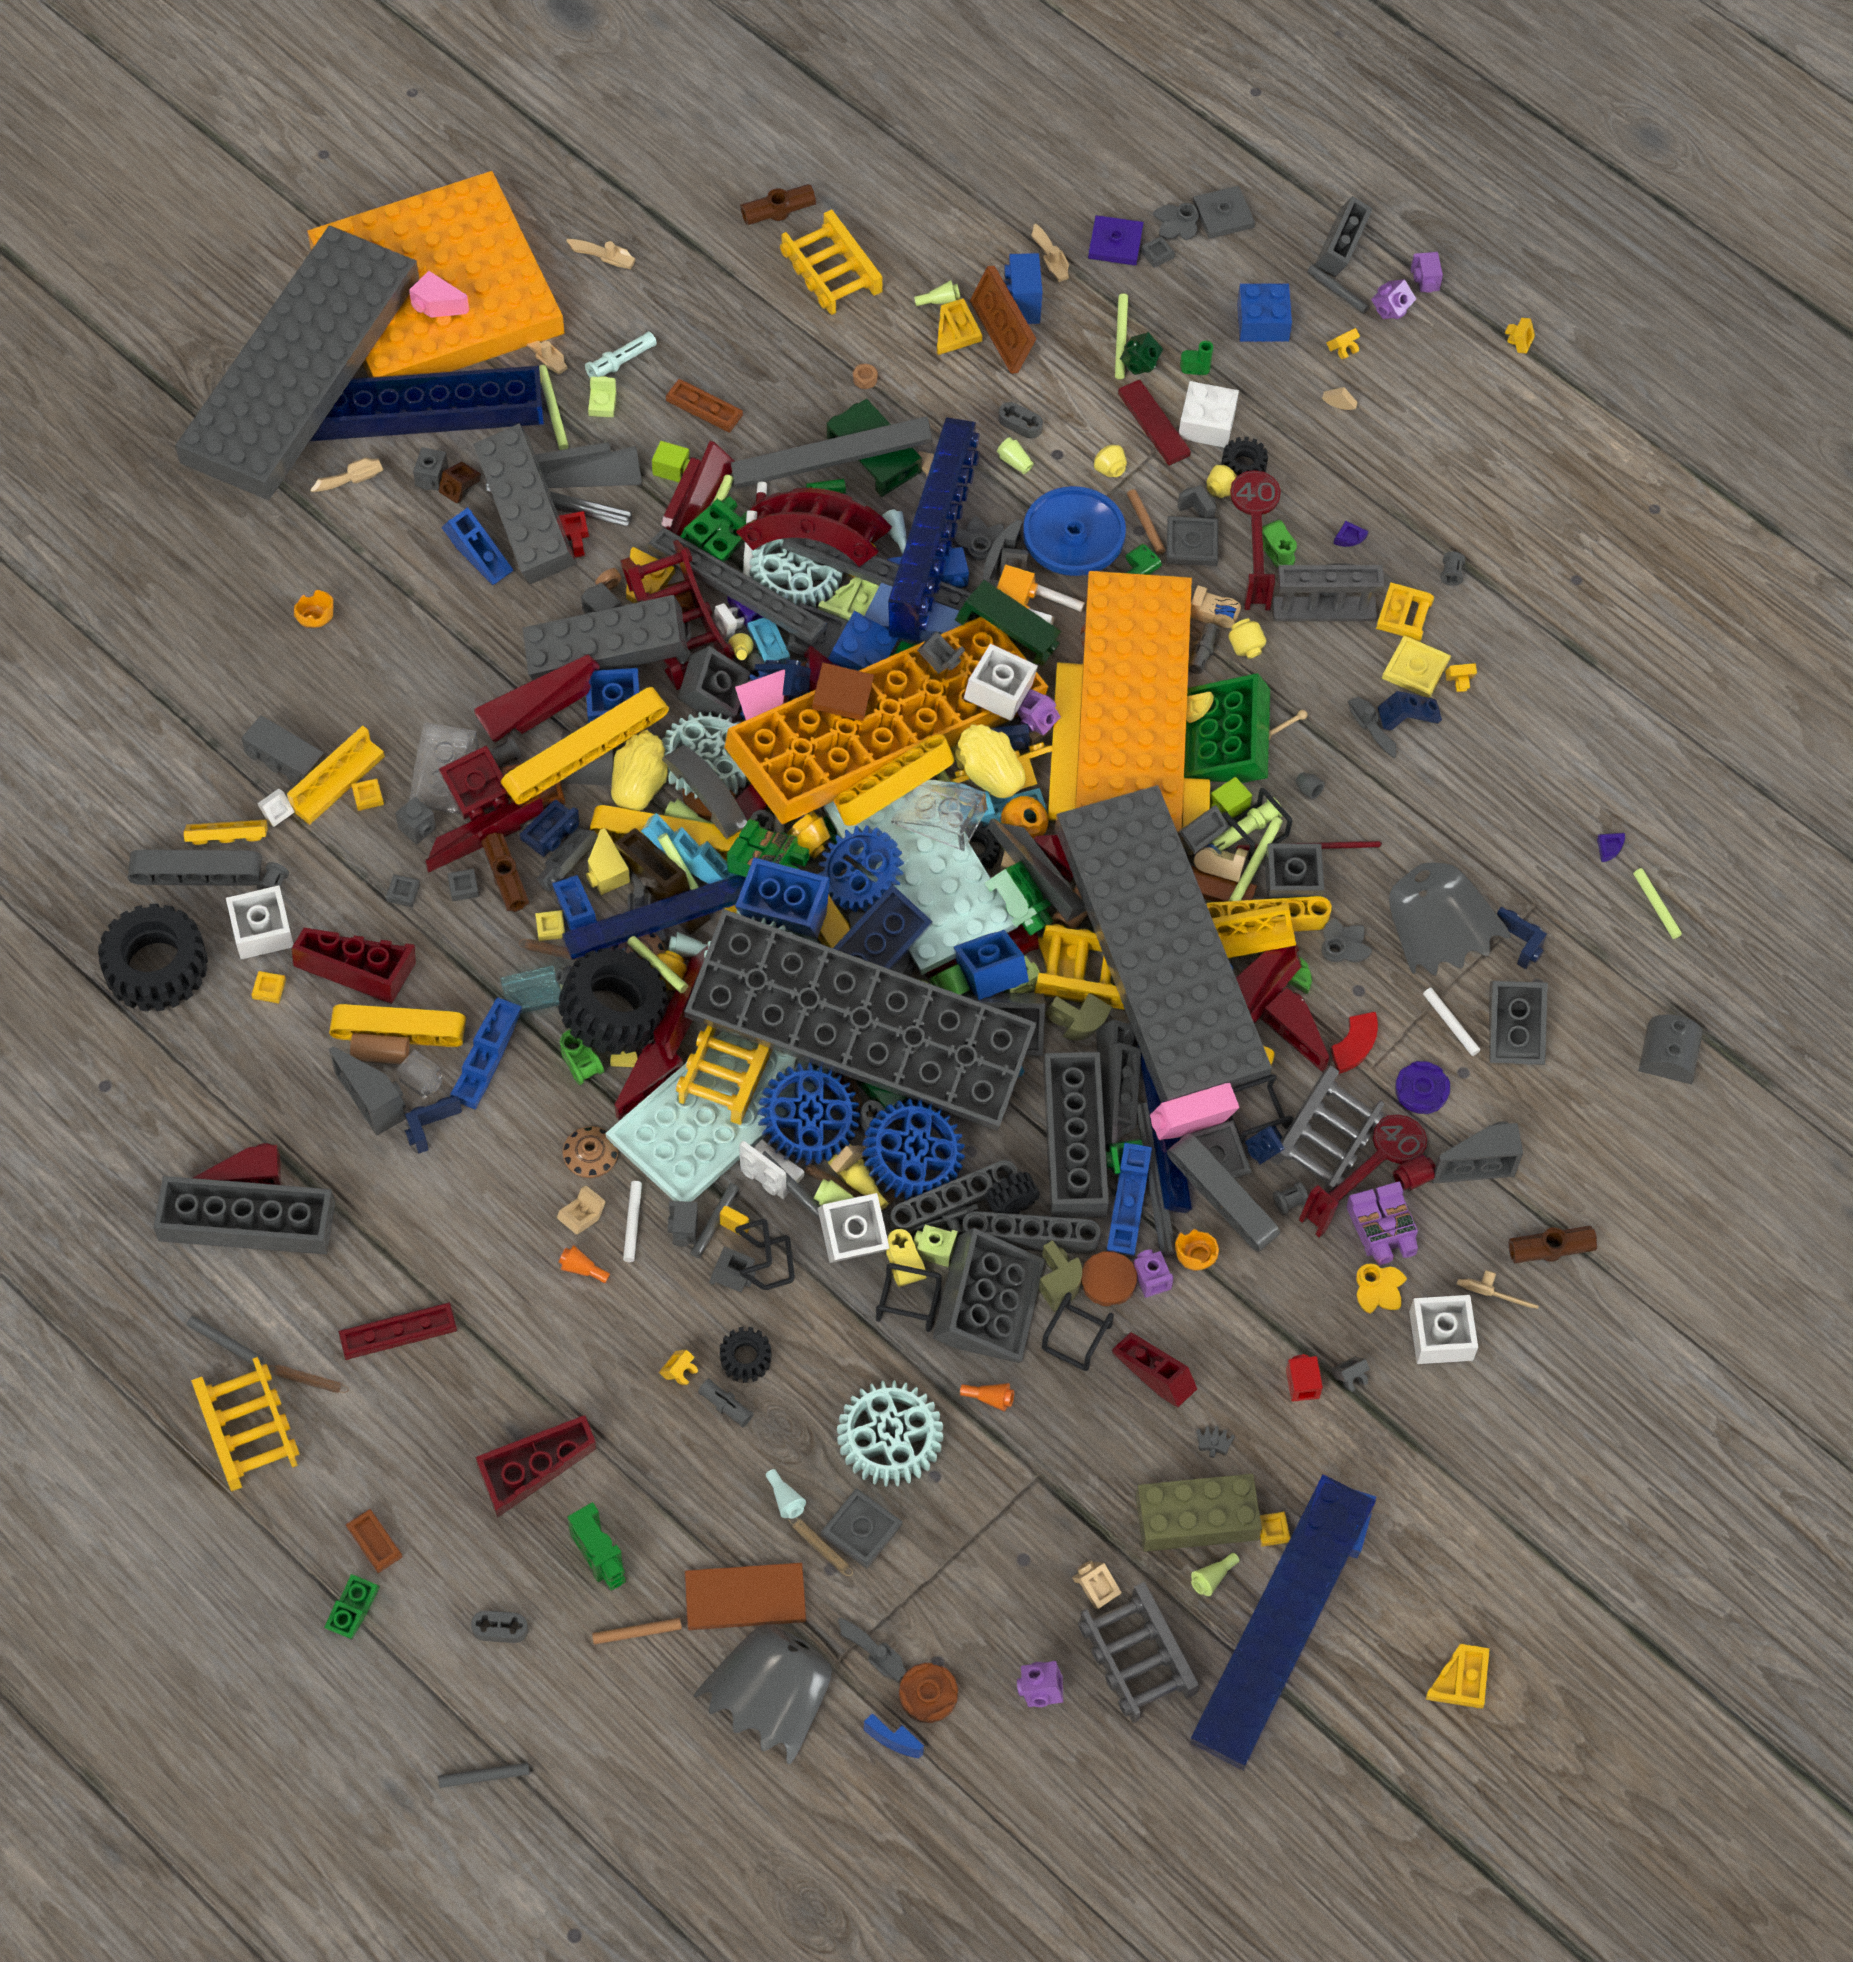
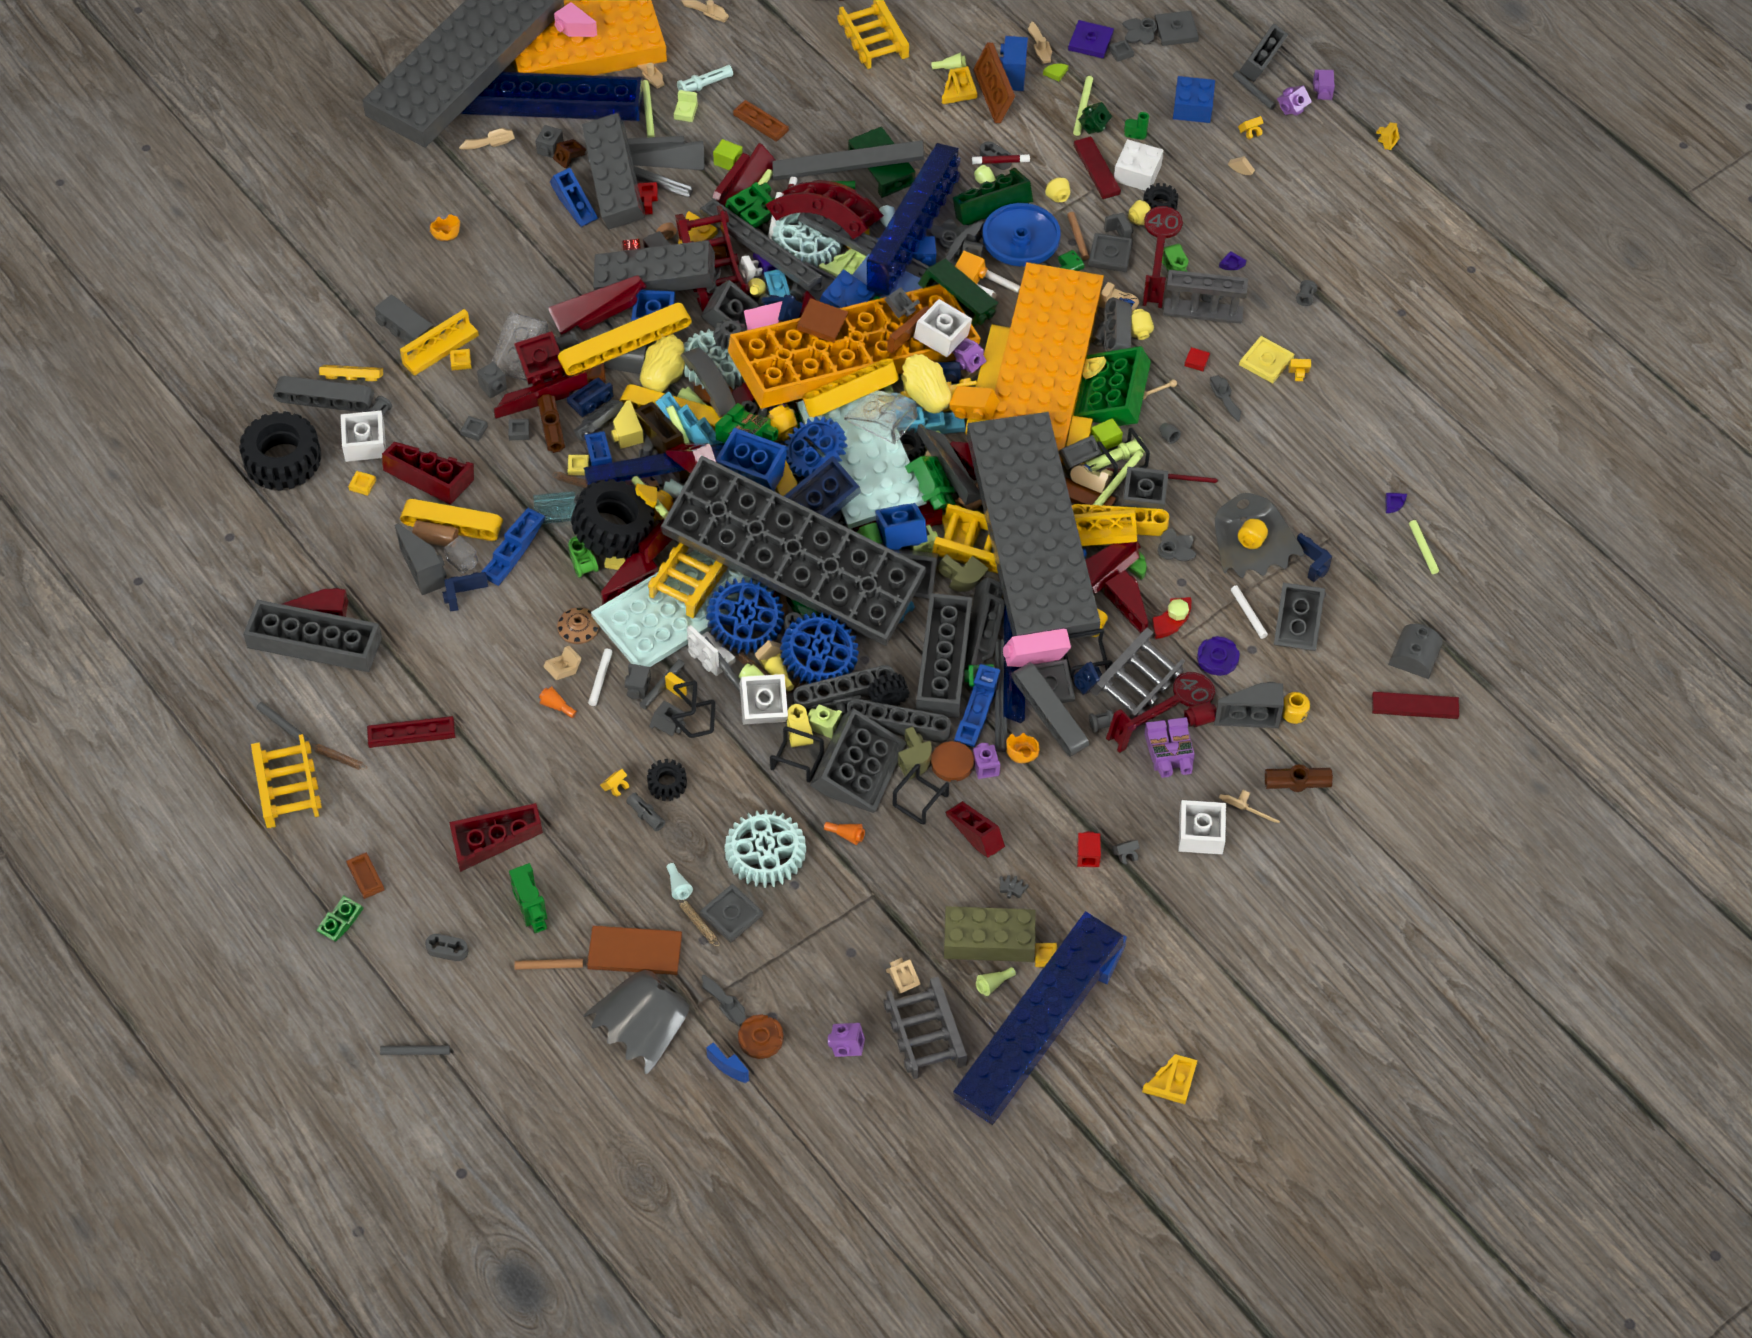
camera: 10 degrees right, 5 degrees down
(276, 807) = (391, 359): white tile -> none
(567, 608) = (630, 244): none -> clear red beam
(655, 962) = (647, 493): none -> yellow tile
(703, 902) = (689, 453): none -> dark red slope
(718, 718) = (723, 331): none -> dark grey gear
(865, 376) = (884, 113): medium nougat tile -> none
(954, 691) = (904, 332): none -> dark orange tile
(1014, 815) = (939, 422): light orange piece -> none
(1028, 480) = (981, 202): none -> dark green wedge
(1029, 426) = (1000, 159): none -> dark red bar
(1055, 779) = (974, 403): none -> light orange brick
(1077, 291) = (1055, 71): none -> lime tile
(1220, 645) = (1117, 325): none -> dark grey beam
(1327, 677) = (1197, 359): none -> red tile
(1362, 1032) = (1178, 609): none -> yellowish green tile
(1382, 1290) = (1161, 795): yellow plate -> none
(1396, 609) = (1259, 315): yellow plate -> none
(1404, 705) = (1252, 383): dark blue bracket -> none
(1440, 914) = (1252, 533): none -> yellow head
(1536, 1148) = (1295, 707): none -> yellow head
(1682, 1123) = (1415, 705): none -> dark red tile

